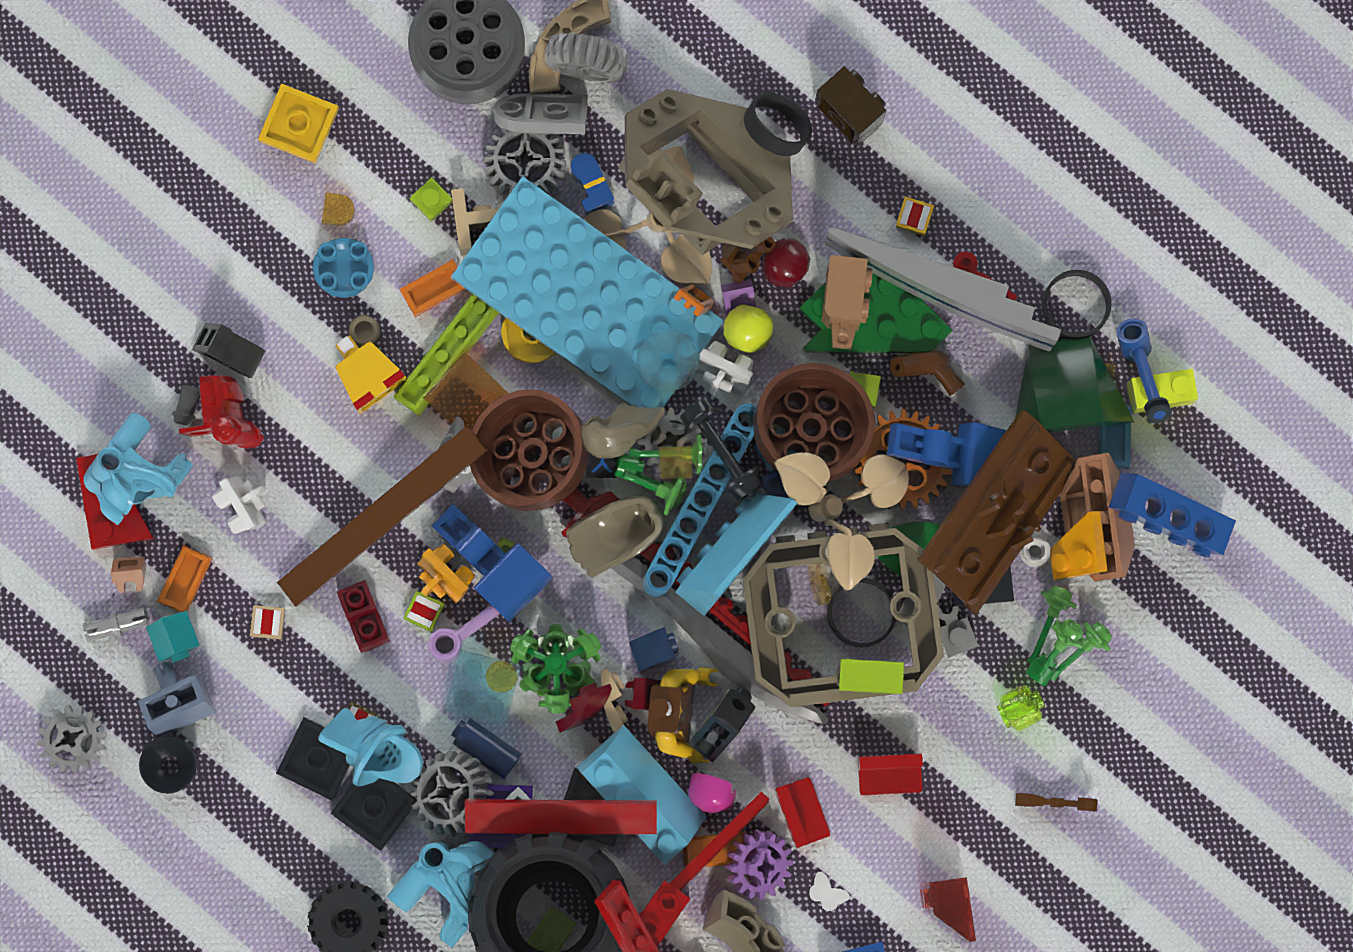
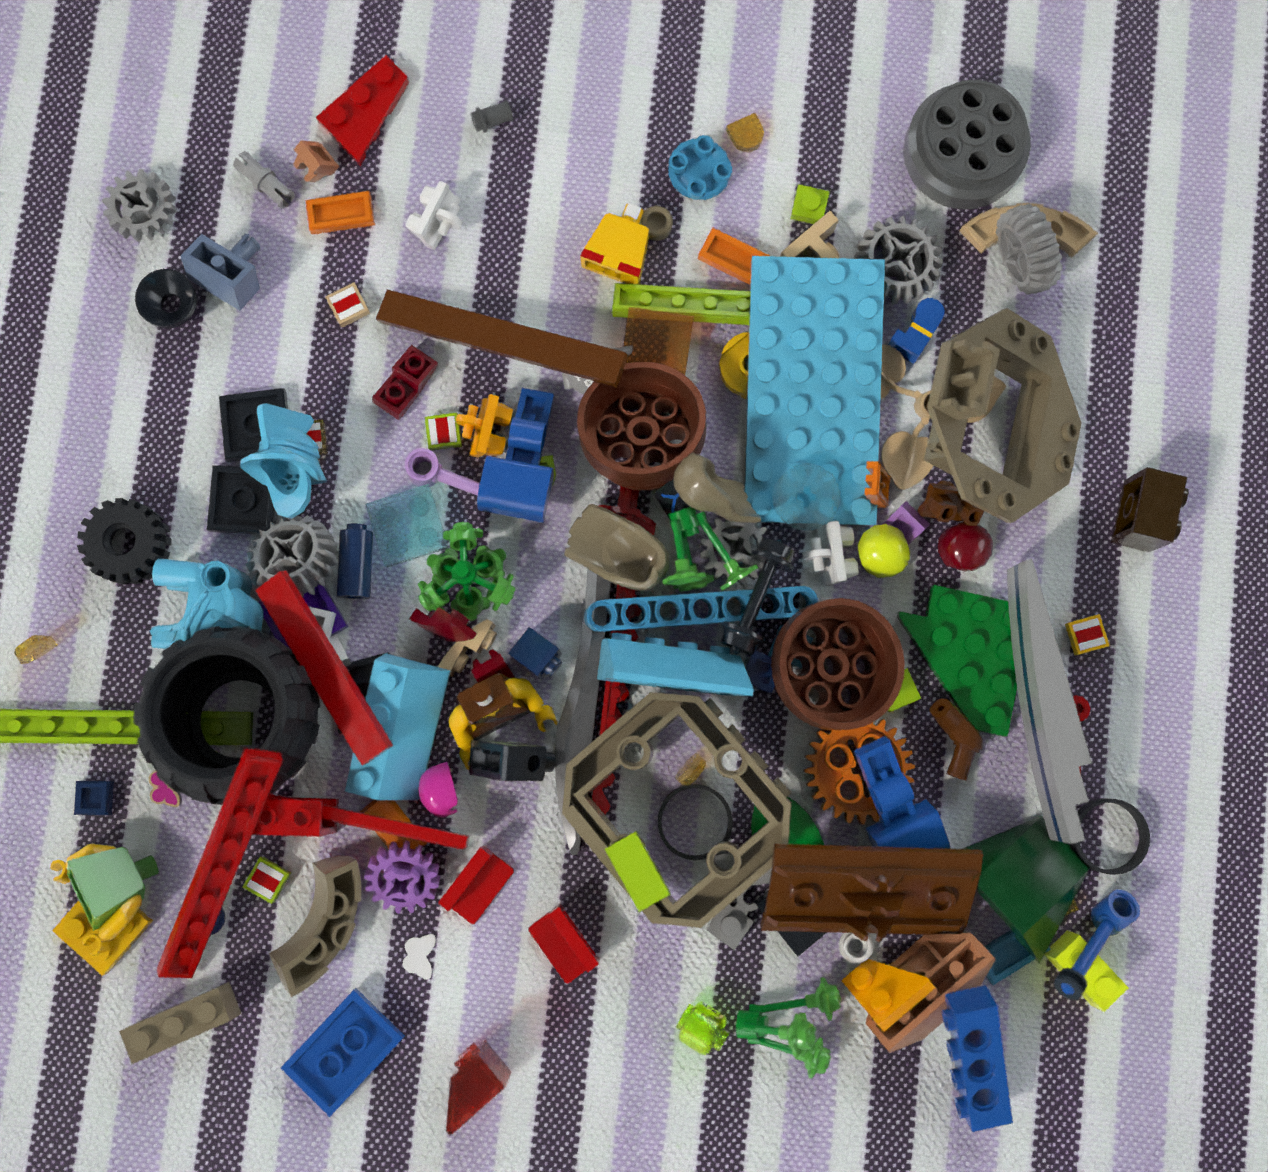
camera: 60 degrees right, 0 degrees up
(125, 478) = (388, 94): medium azure helmet -> none
(173, 637) = (280, 231): teal brick -> none
(223, 414) = (503, 146): red piece -> none
(229, 349) = (563, 120): pearl dark grey tile -> none
(298, 123) = (799, 51): yellow plate -> none
(501, 676) = (425, 534): clear yellow tile -> none
(542, 113) = (952, 246): light grey tile -> none
(675, 462) = (717, 560): clear yellow tile -> none
(791, 111) = (1068, 456): black tyre -> none
(803, 481) = (778, 688): tan plant -> none
(844, 298) = (970, 618): medium nougat hinge -> none
(1032, 800) = (623, 1094): reddish brown piece -> none

